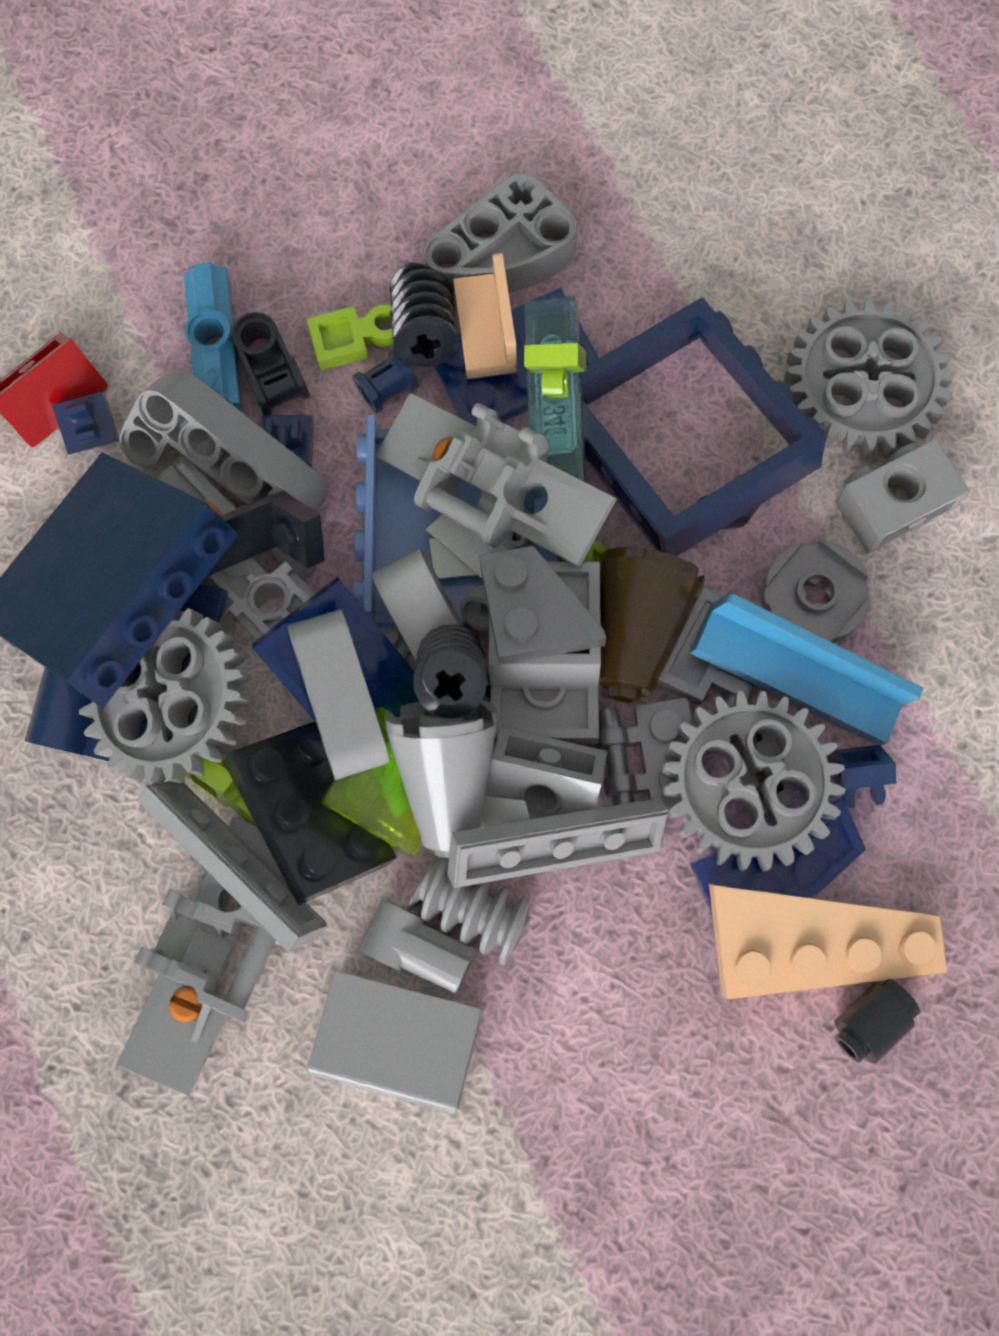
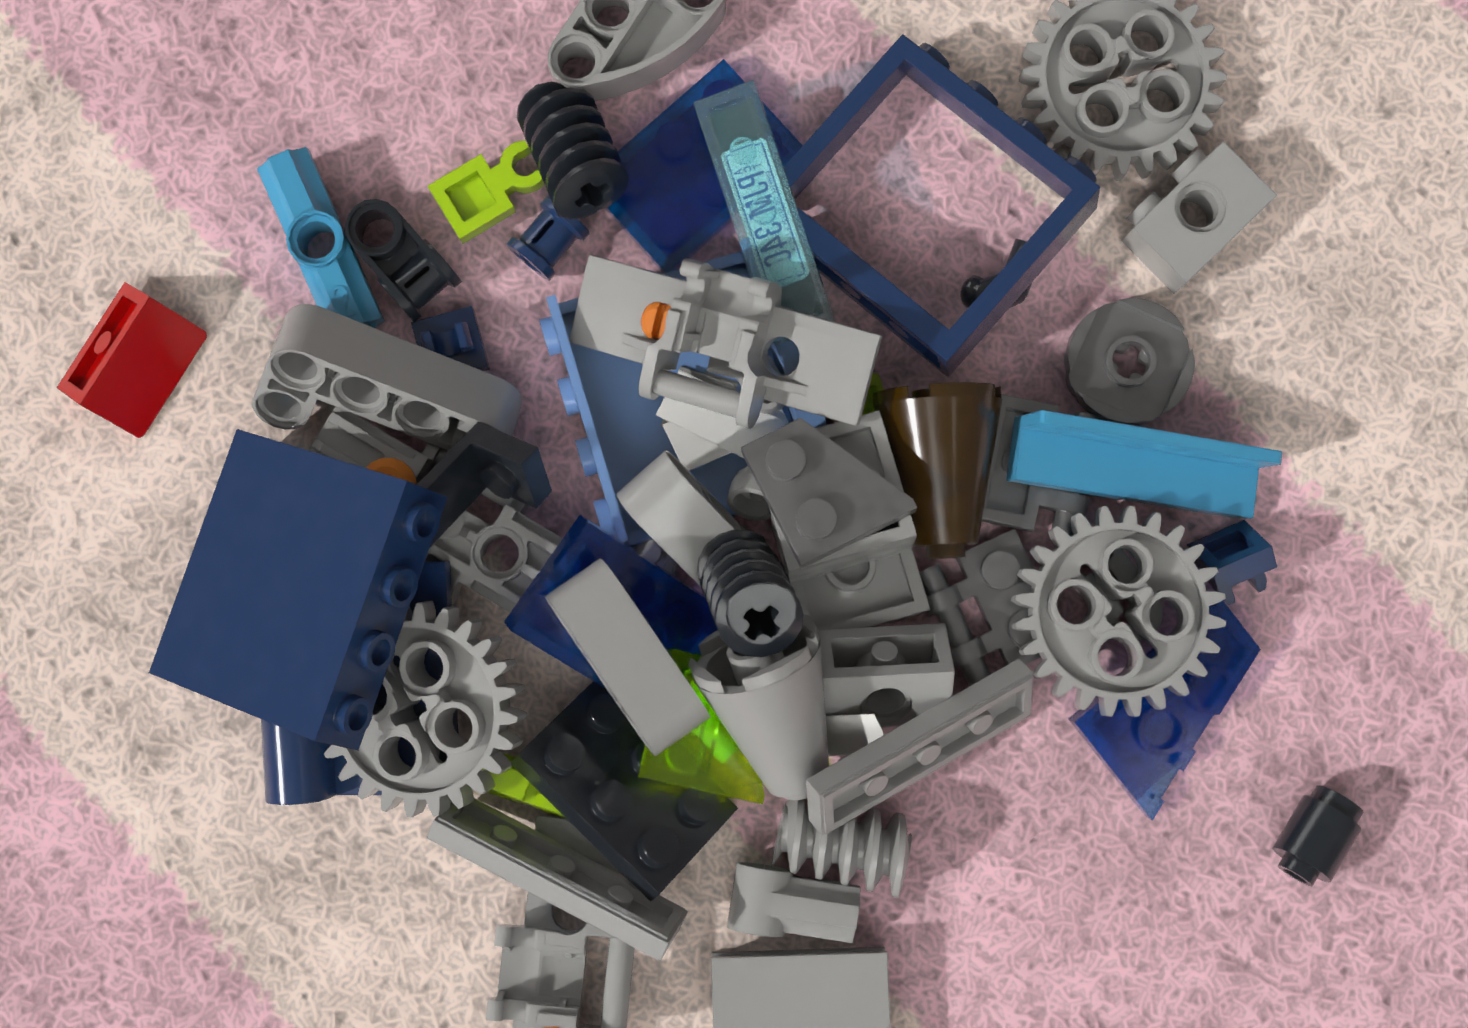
camera: 25 degrees left, 10 degrees up
(86, 423) = (199, 391): dark blue tile -> none
(486, 322) = (652, 136): light nougat panel -> none
(555, 364) = (761, 183): lime tile -> none
(806, 943) = (1221, 773): light nougat wing -> none

